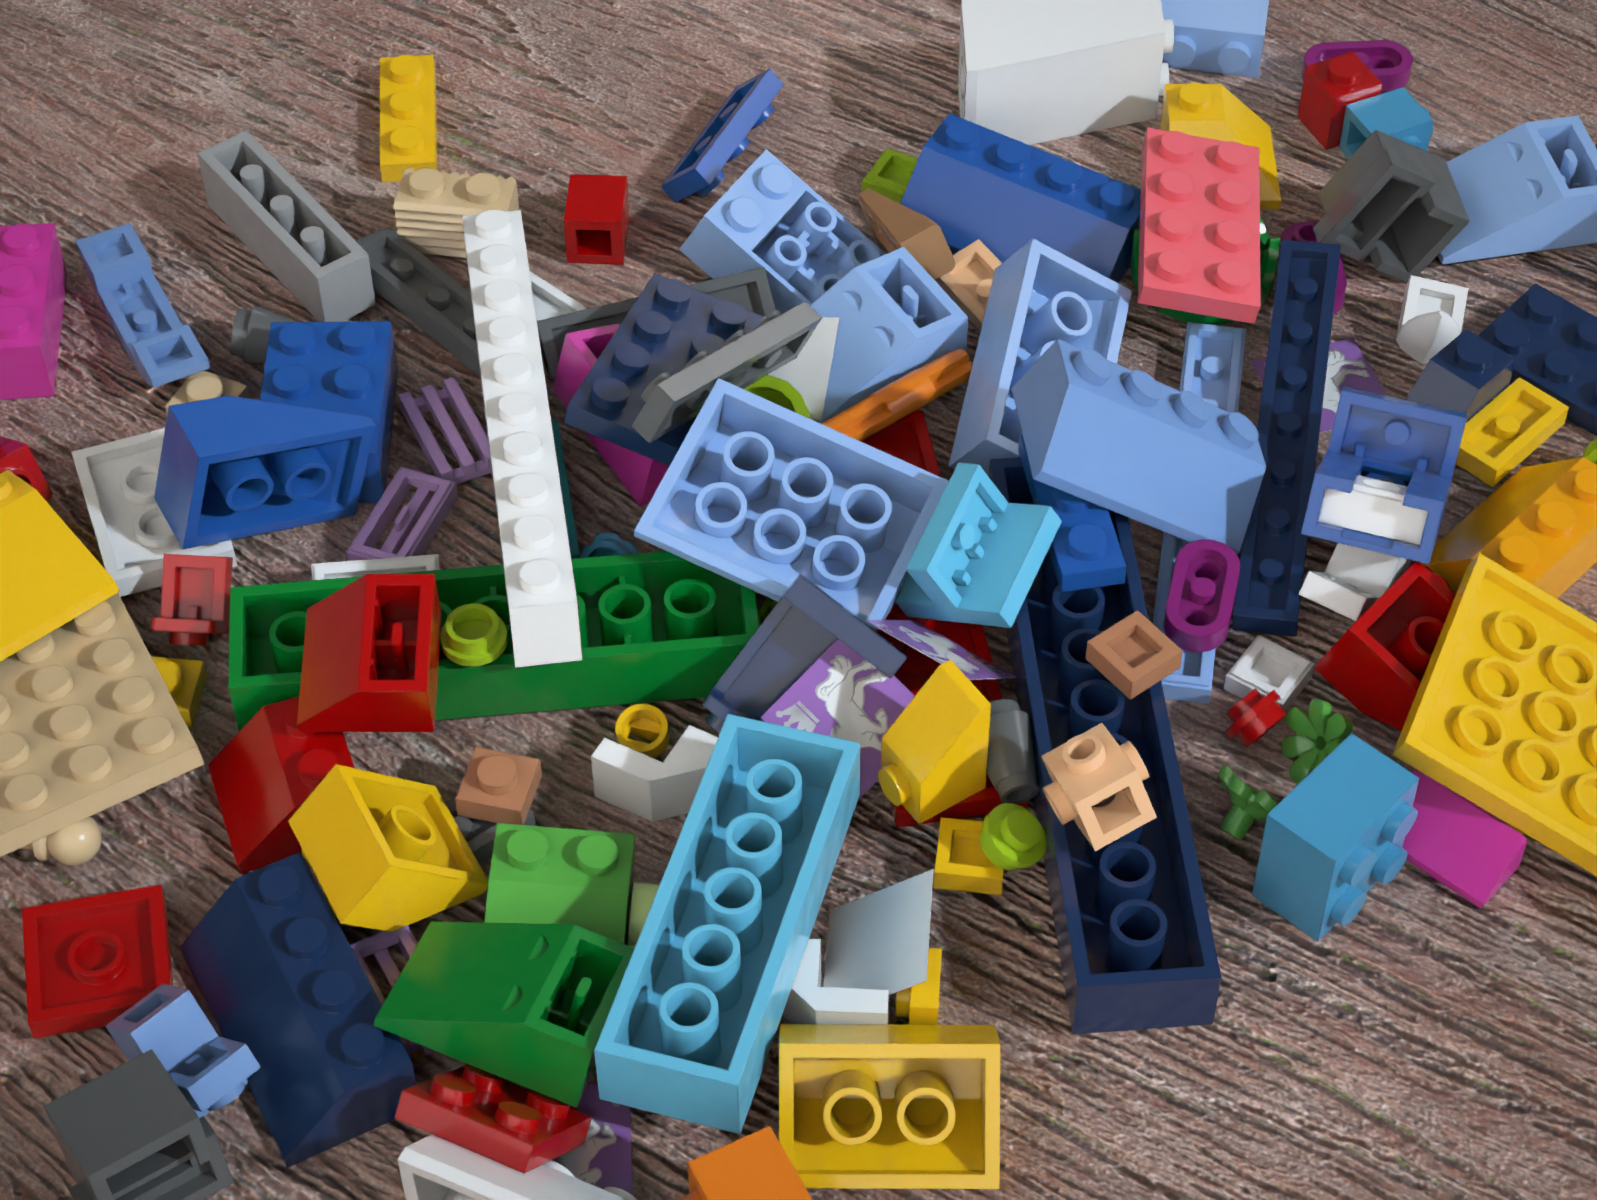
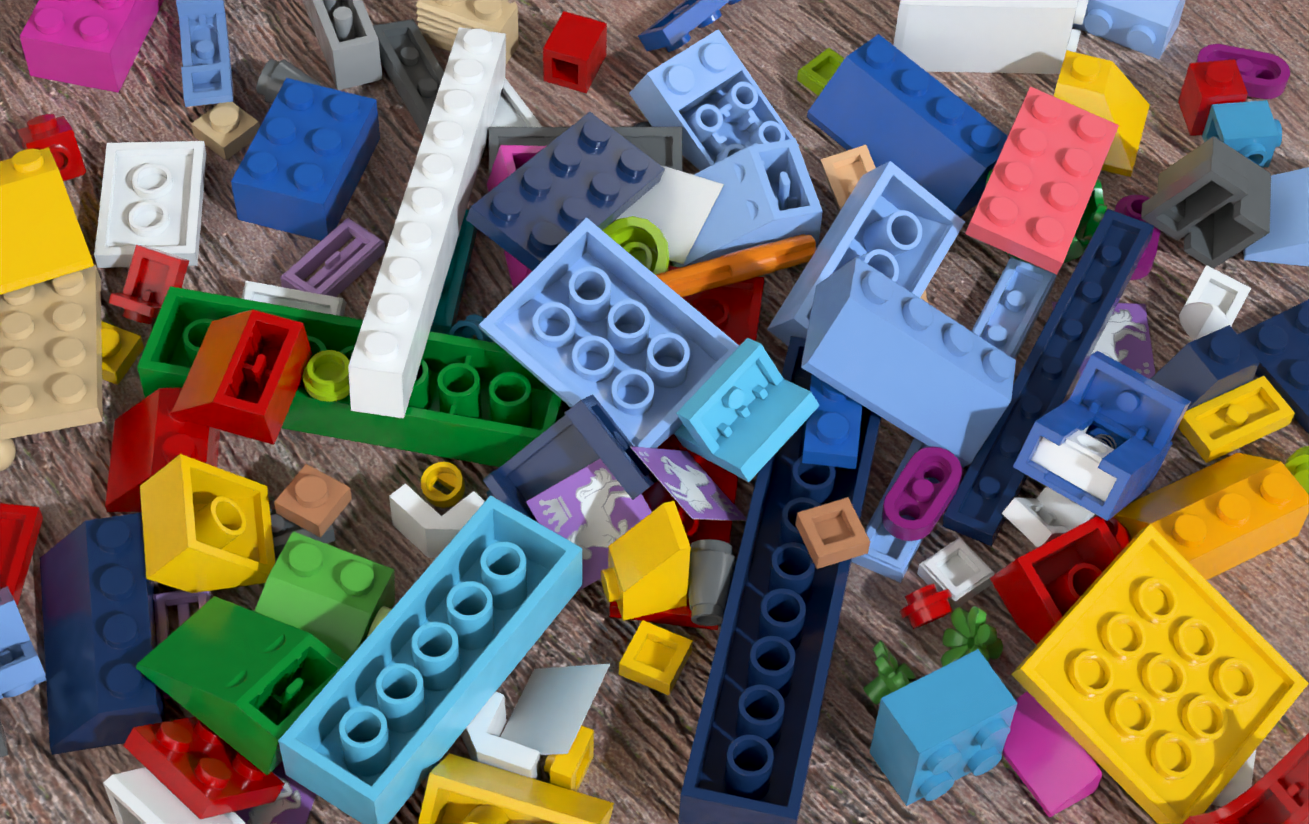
camera: 15 degrees right, 5 degrees up
(257, 467) = (228, 195): blue slope -> none
(434, 402) = (393, 171): lavender tile -> none
(739, 361) = (615, 207): dark grey plate -> none
(901, 227) = (809, 130): medium nougat slope -> none
(1012, 837) = (688, 653): lime plate -> none
(1098, 786) = (753, 637): light nougat brick -> none

